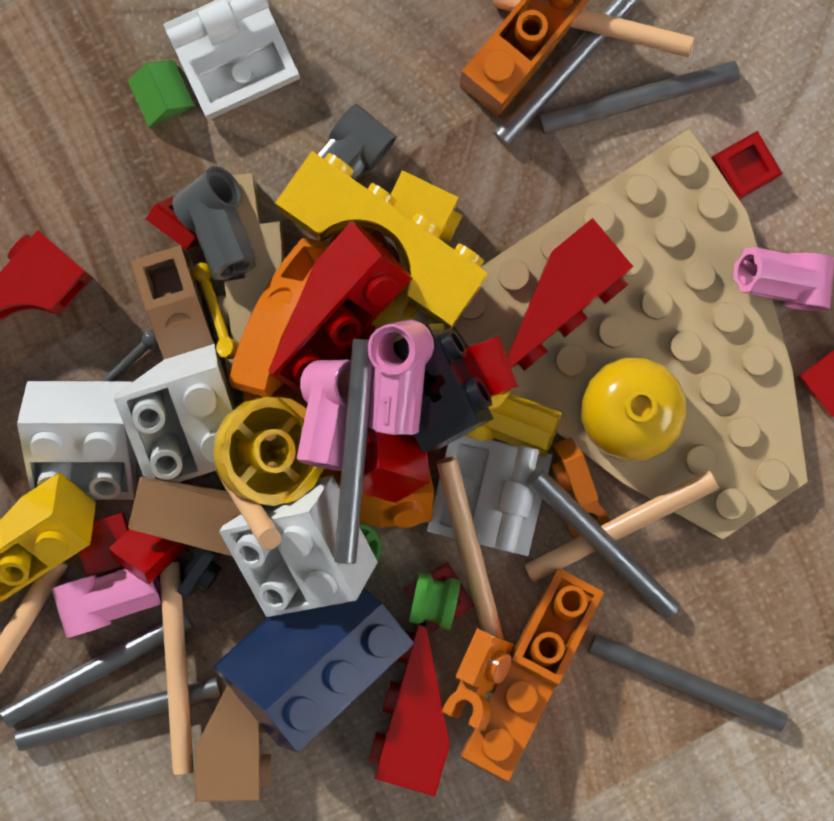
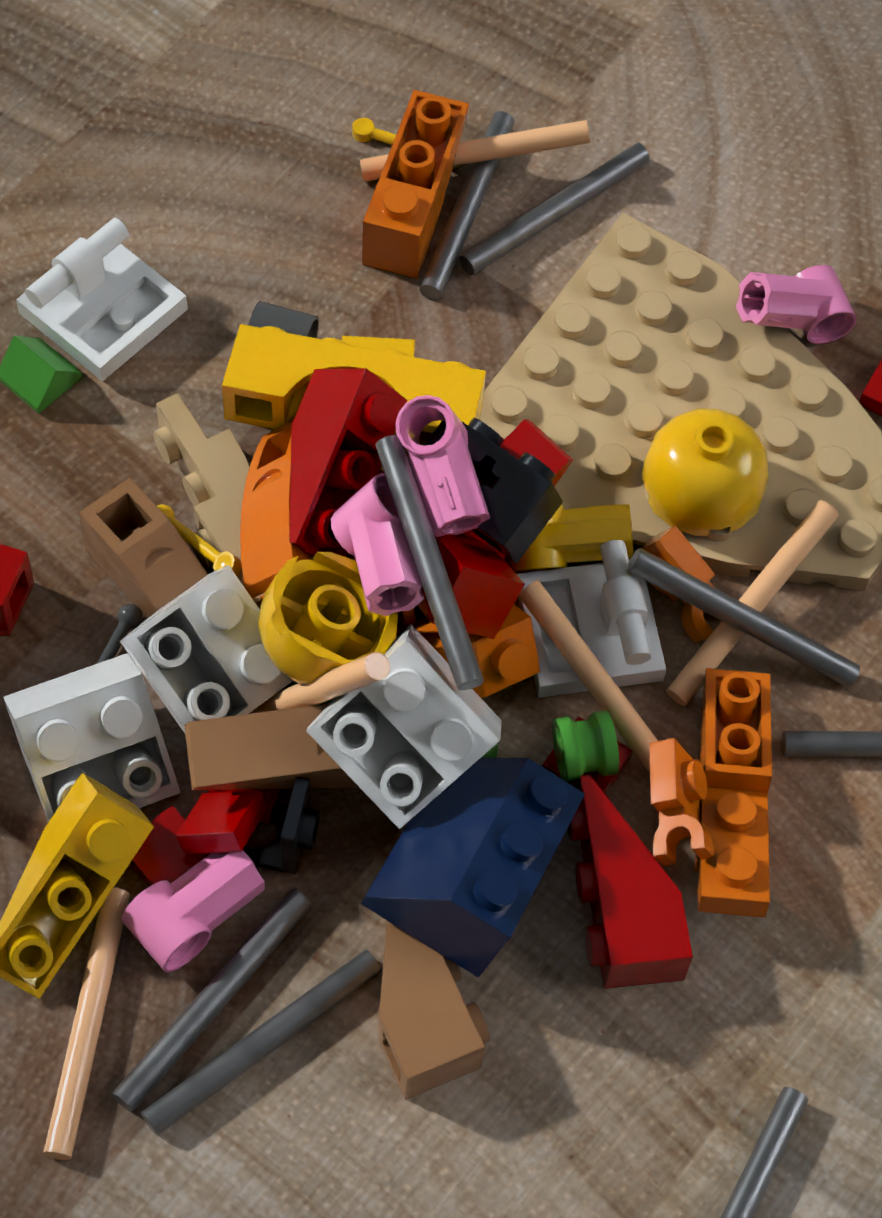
camera: 20 degrees left, 25 degrees down
(165, 220) = (108, 475): red tile -> none
(176, 670) = (315, 951): light nougat bar -> none
(210, 211) = (151, 440): dark grey piece -> none
(573, 277) = (577, 367): red slope -> none
(747, 165) = (701, 227): red tile -> none

